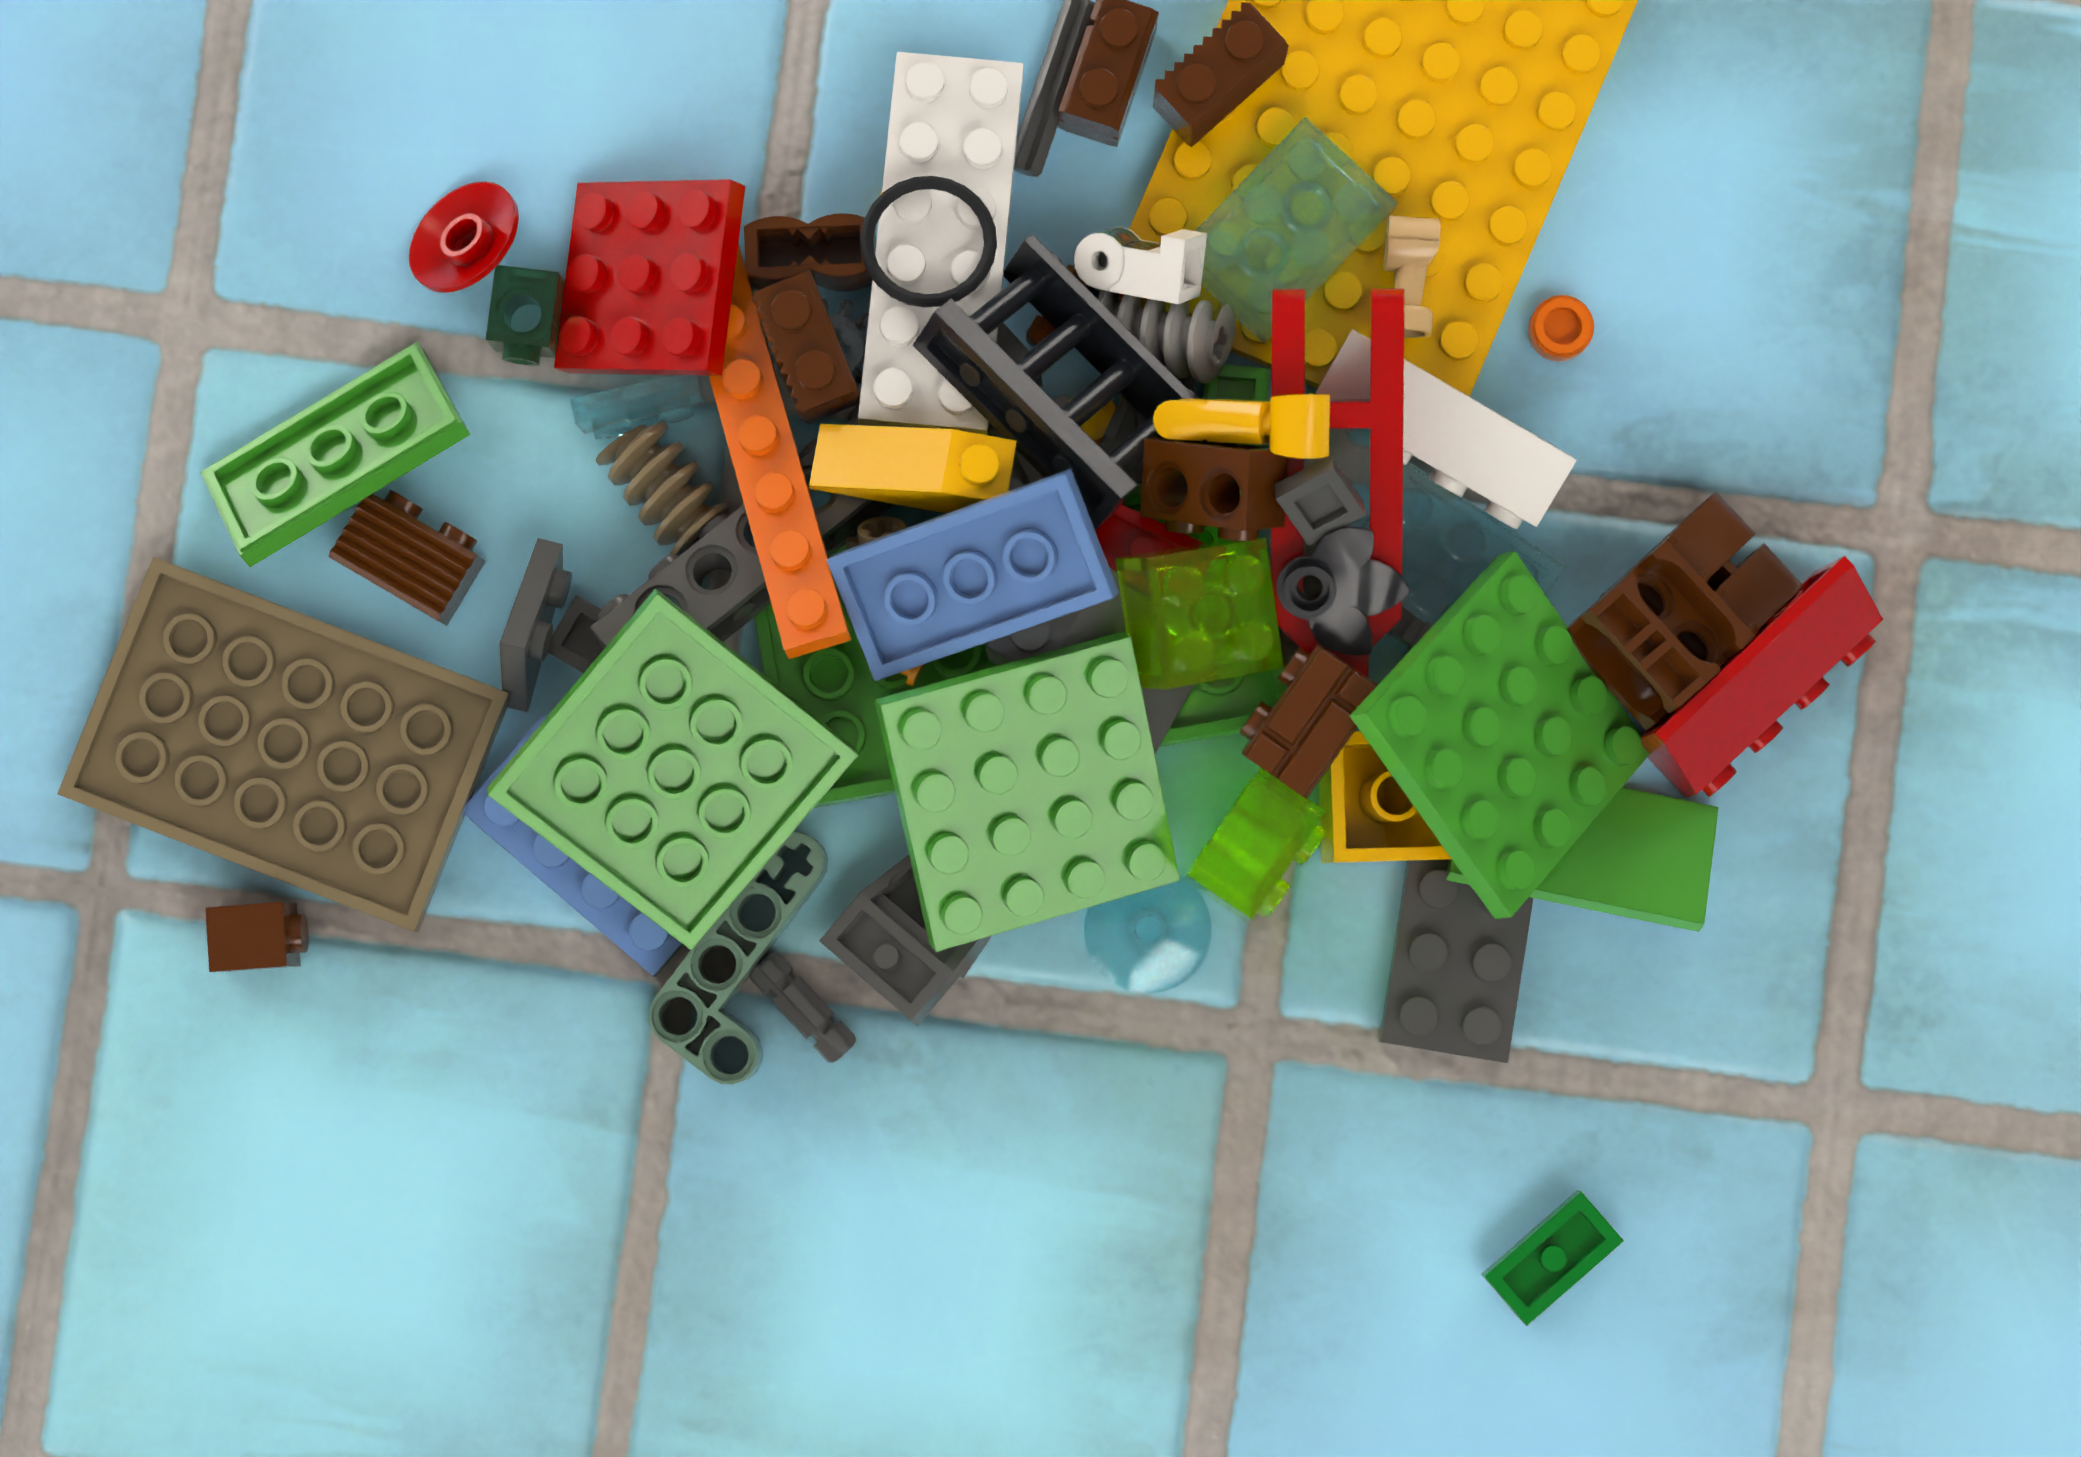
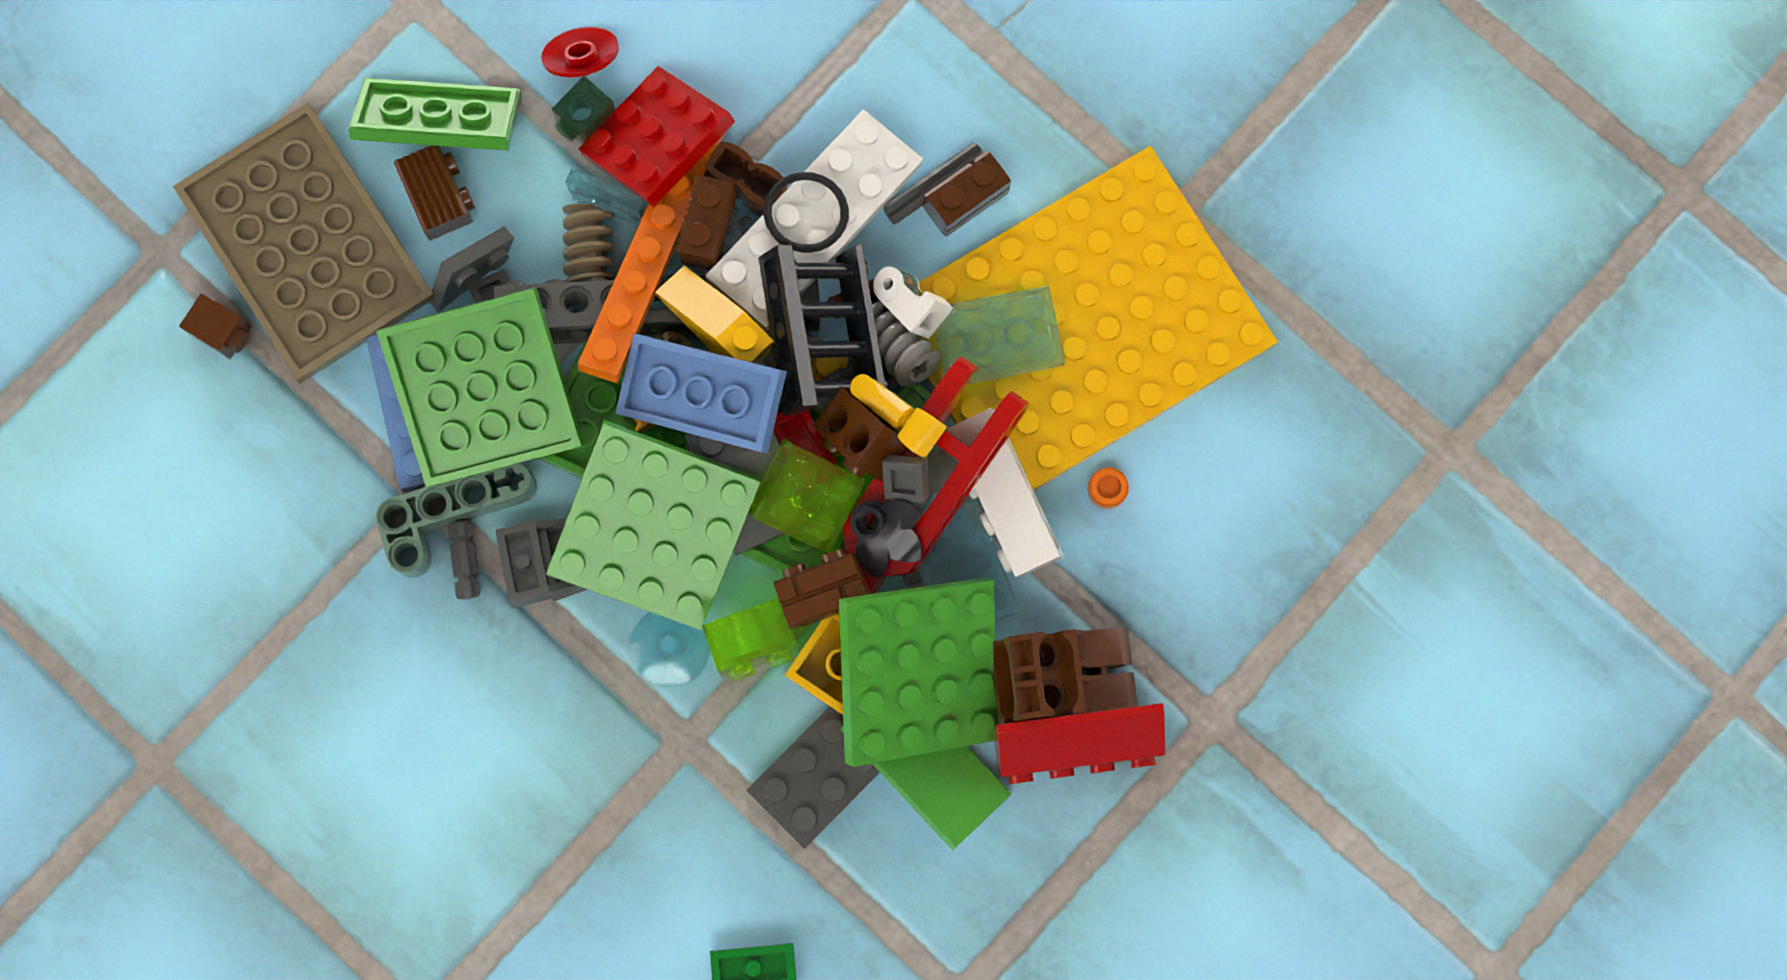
camera: 30 degrees right, 5 degrees down
(1219, 74) = (1019, 232): reddish brown brick -> none
(1408, 252) = (1052, 391): tan leg -> none

